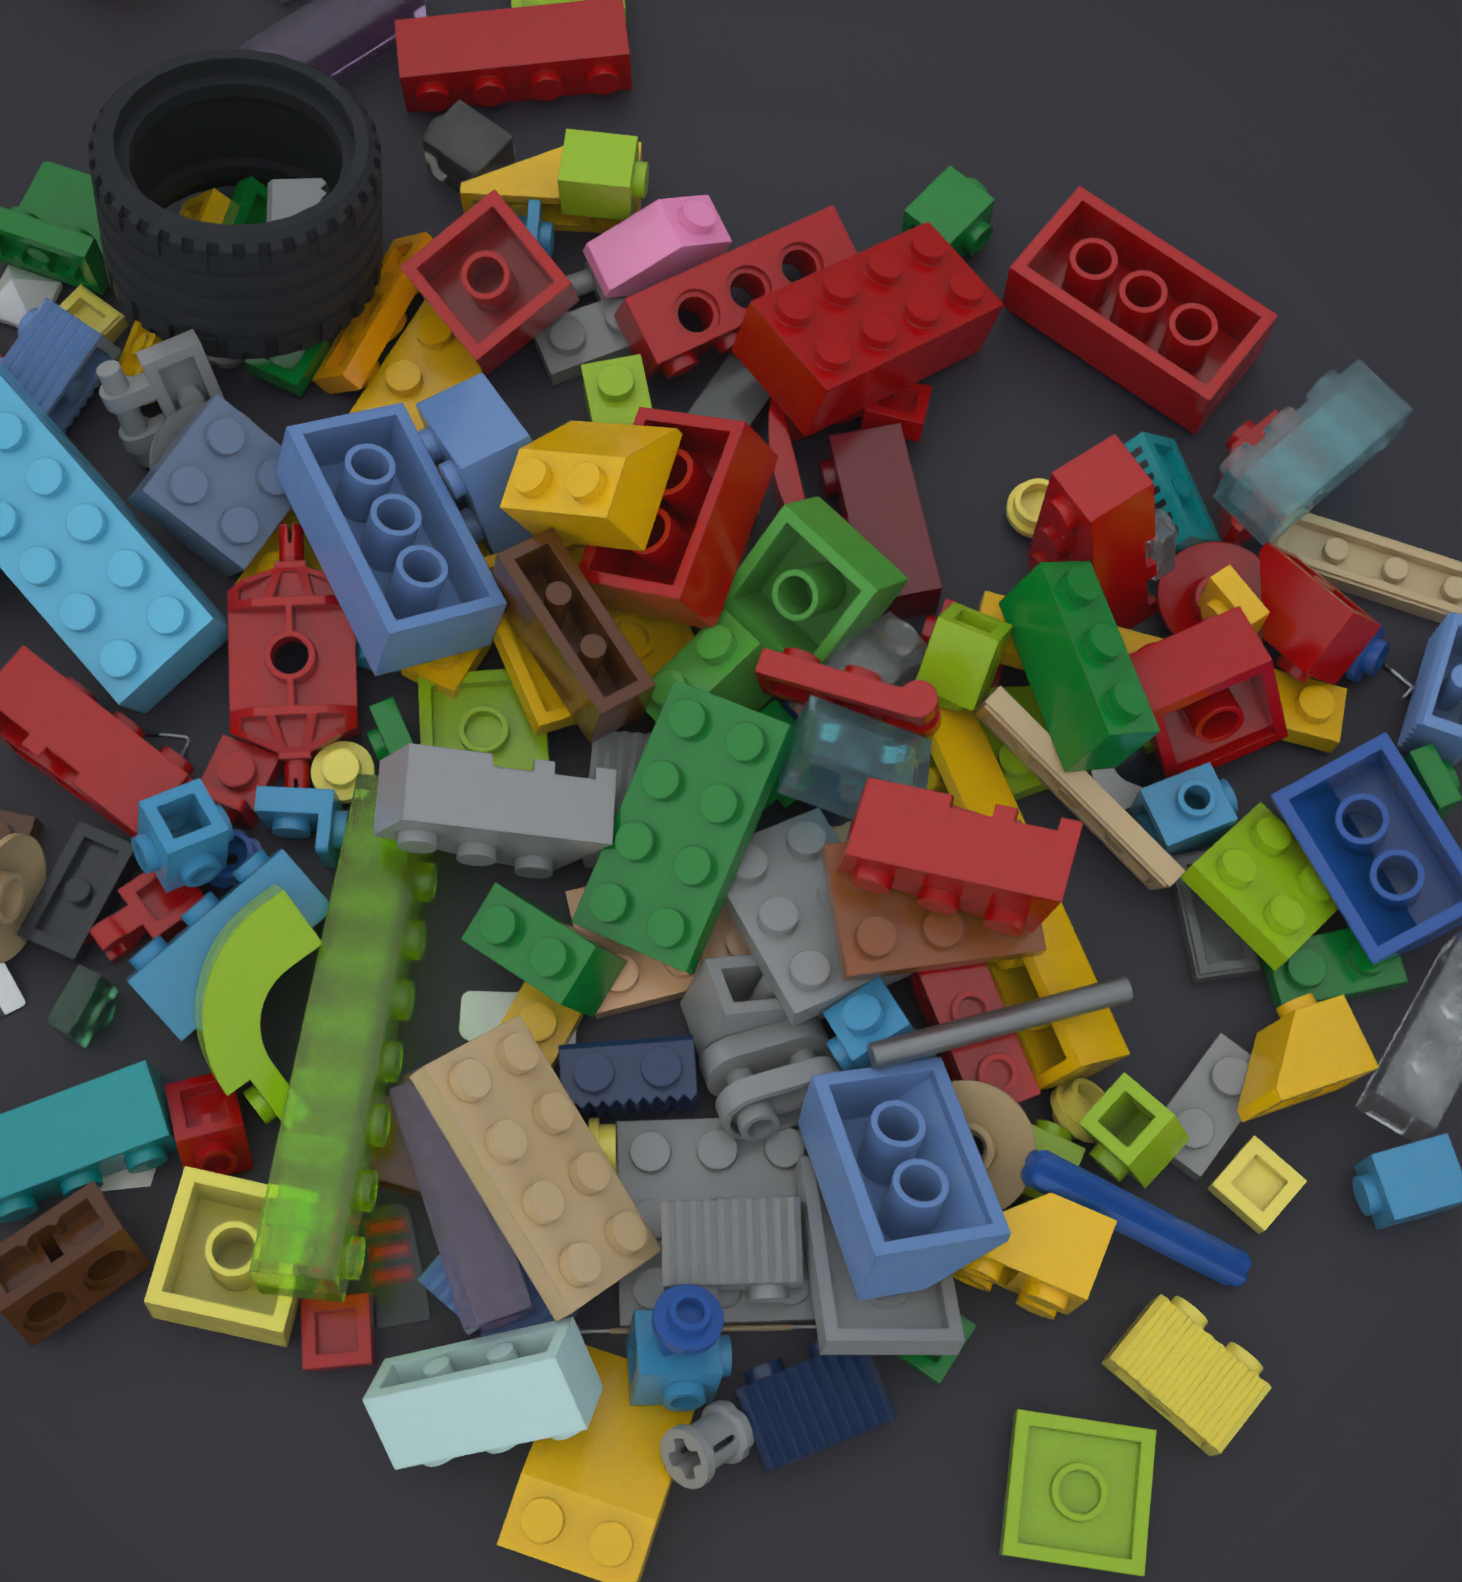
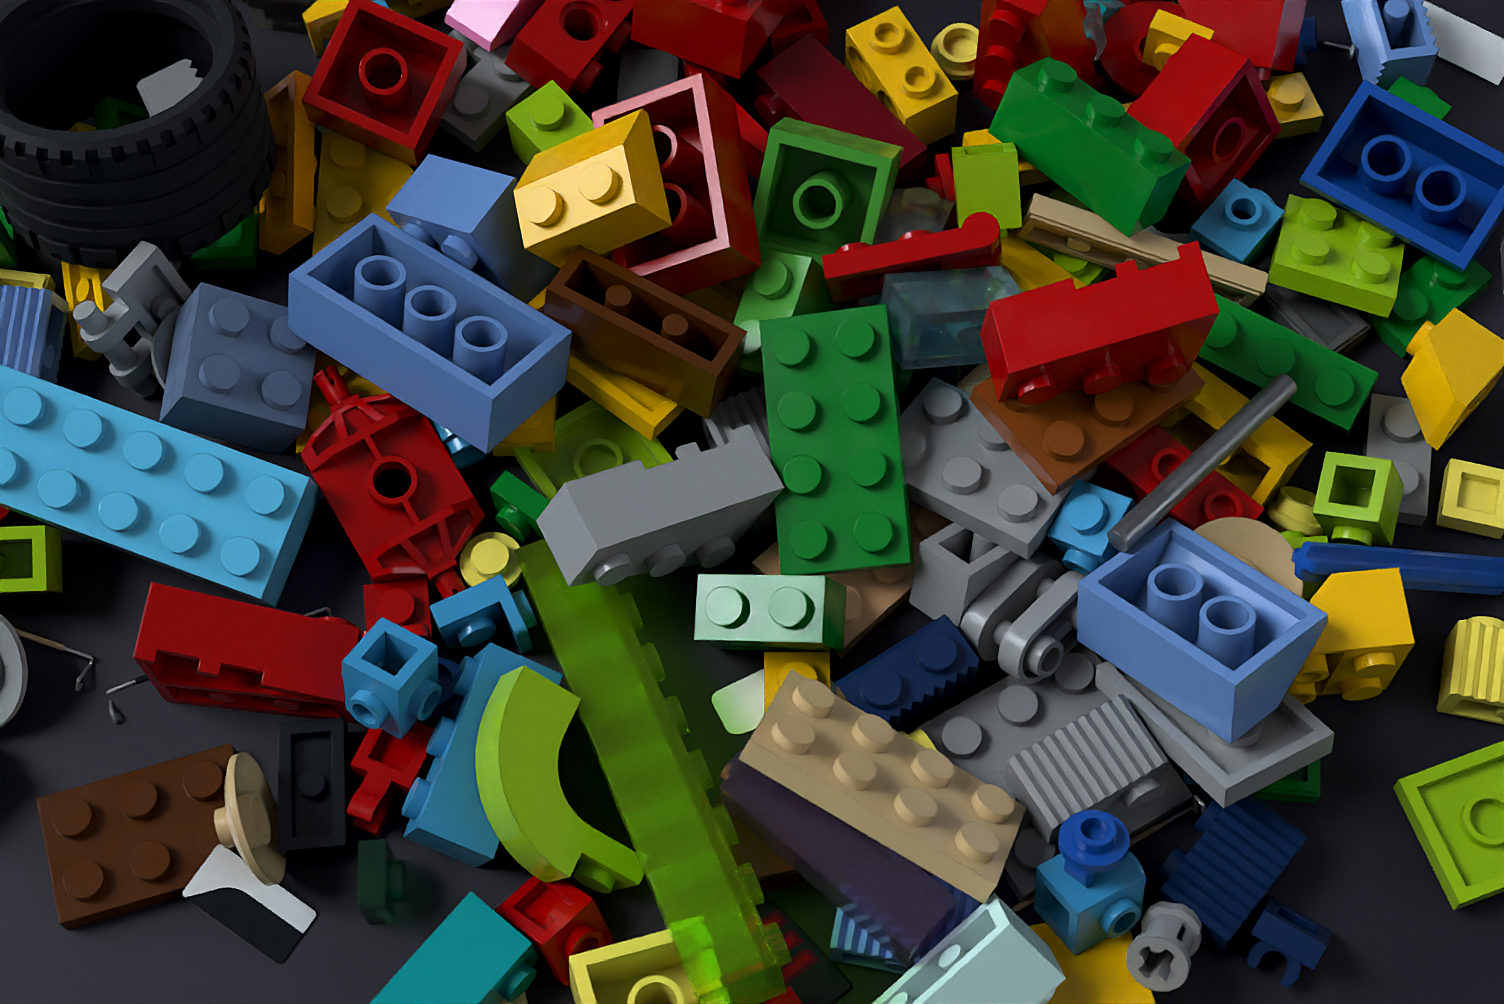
camera: 25 degrees left, 5 degrees down
(832, 1495) = (1291, 934): none -> dark blue tile
(962, 508) = (902, 74): none -> yellow brick
(1137, 943) = (1258, 350): none -> green brick

